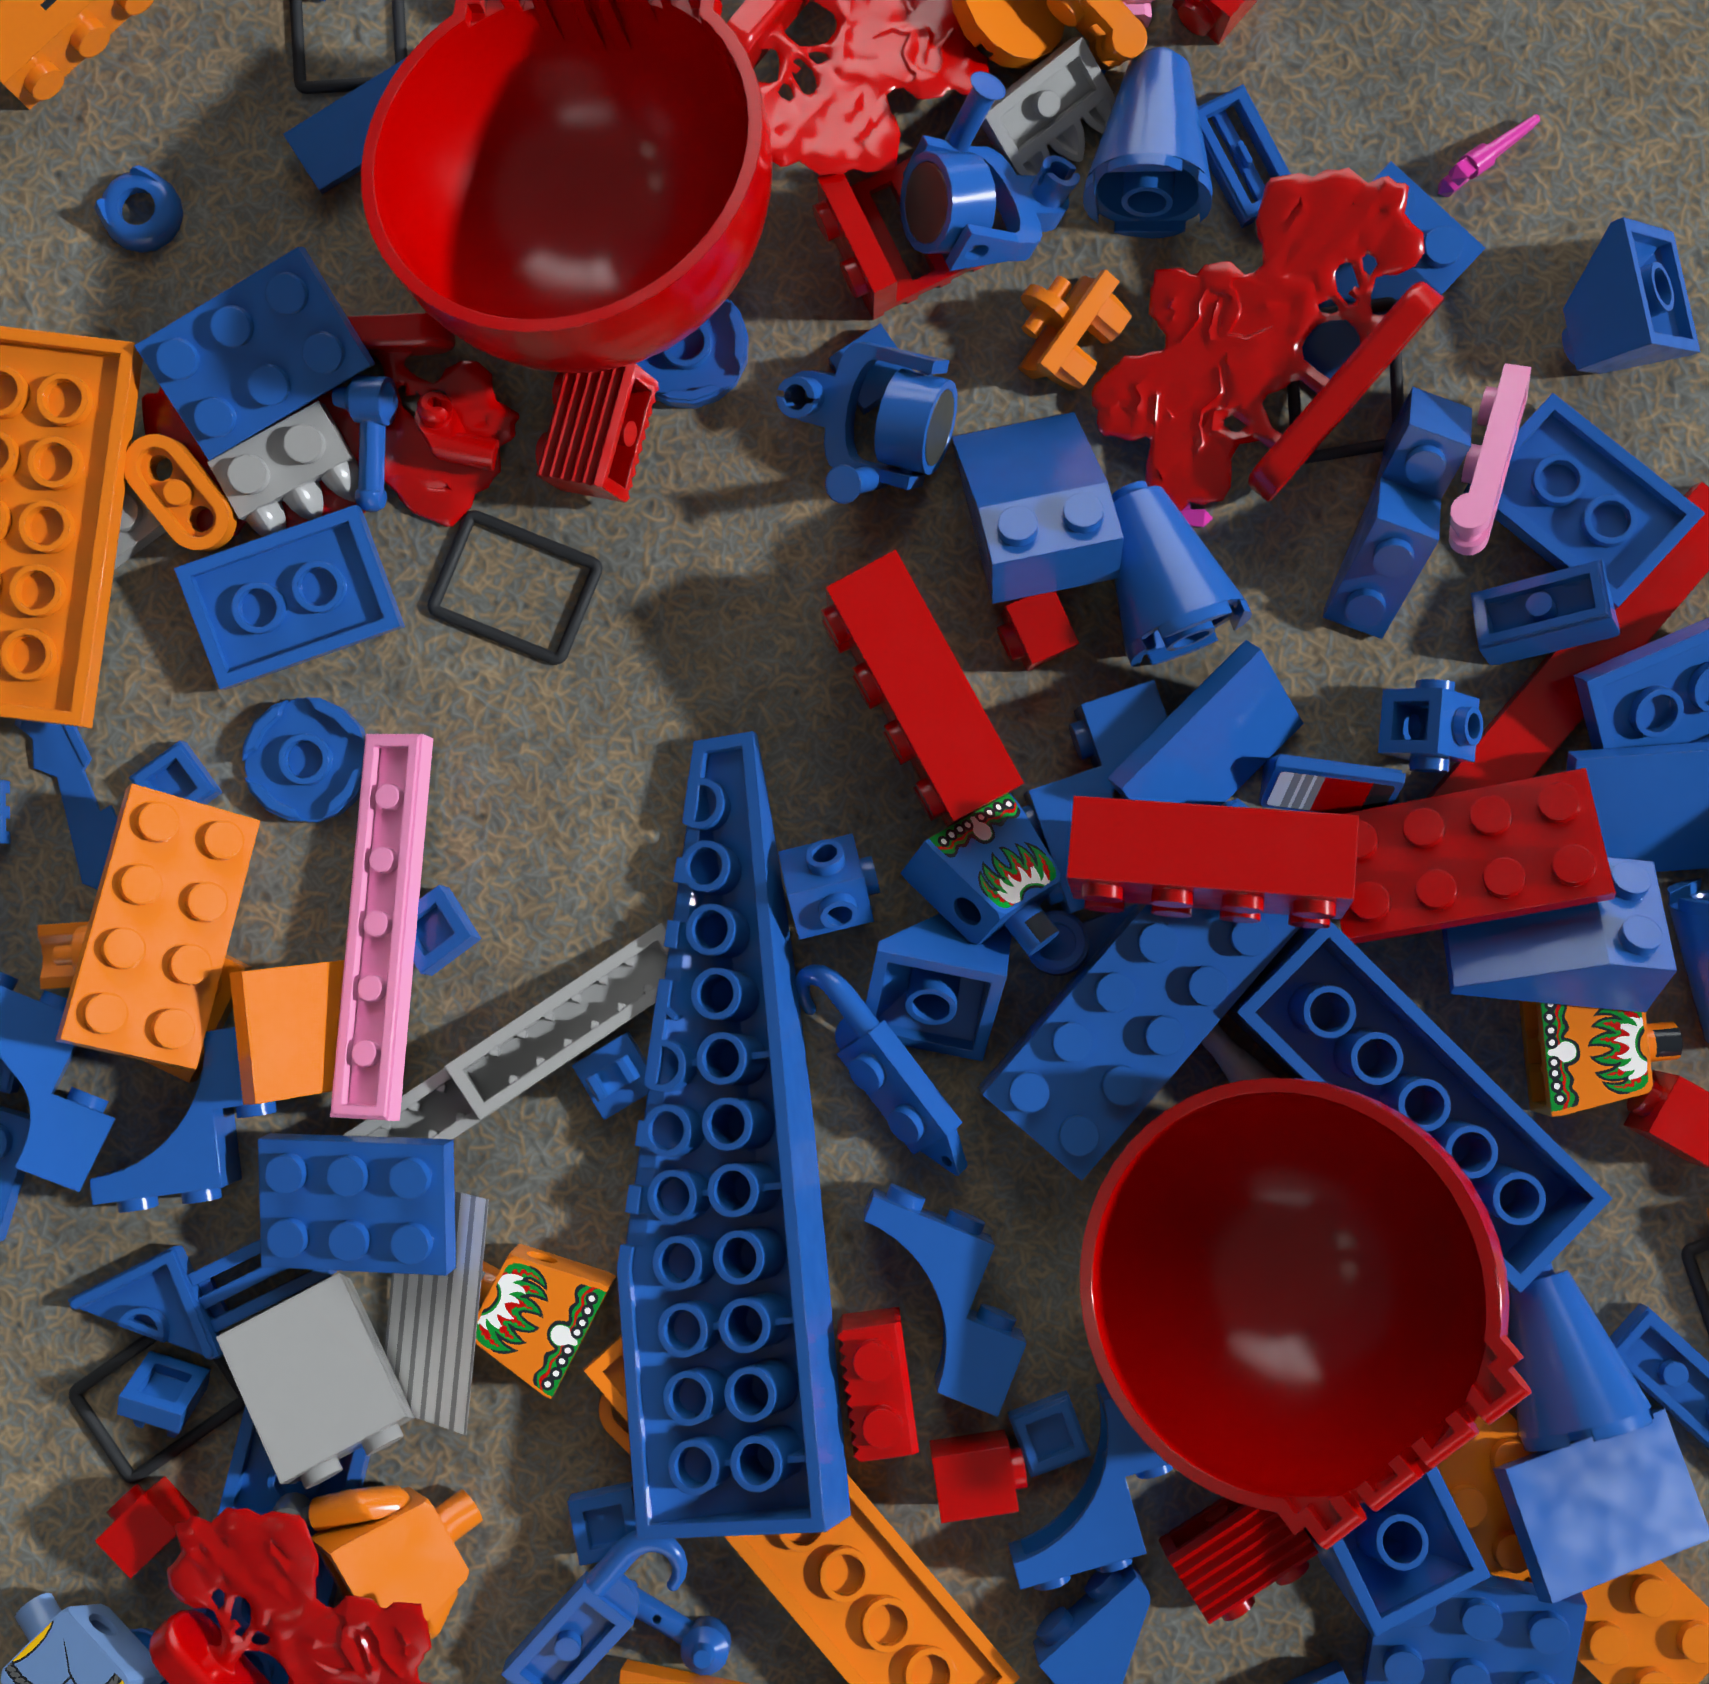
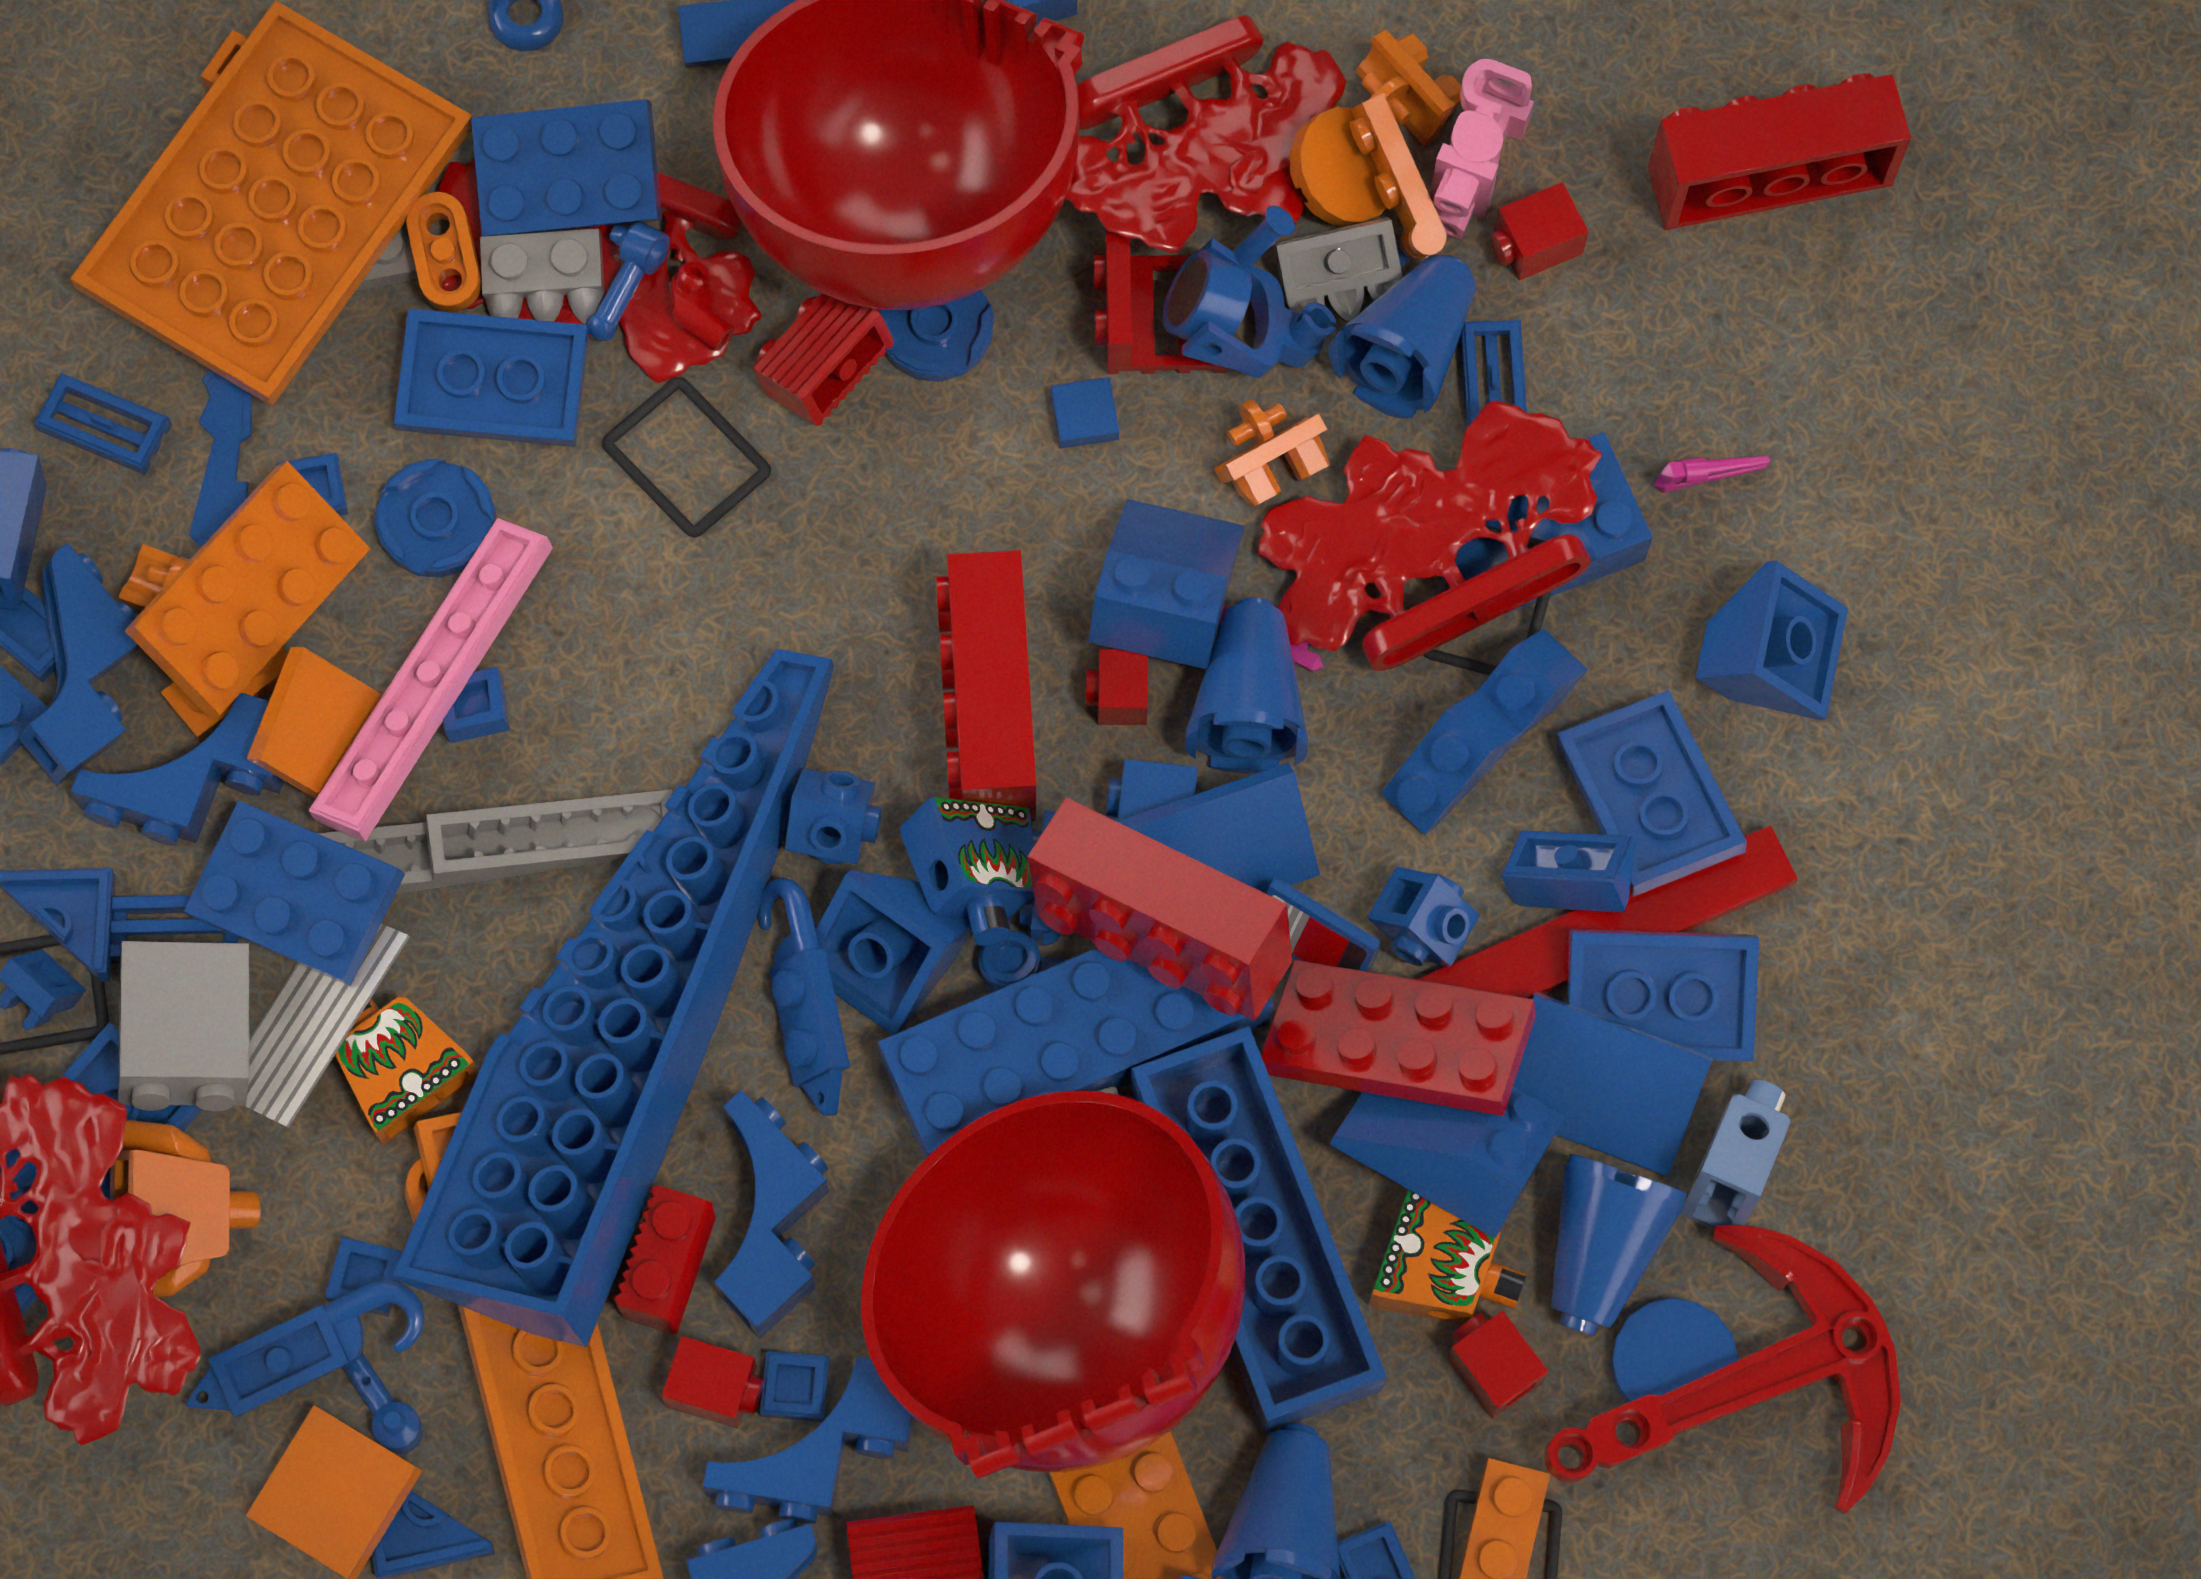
camera: 25 degrees right, 15 degrees down
(614, 1075) = (565, 899): blue tile -> none
(910, 427) = (1091, 468): blue piece -> none
(1488, 463) = (1577, 715): bright pink plate -> none

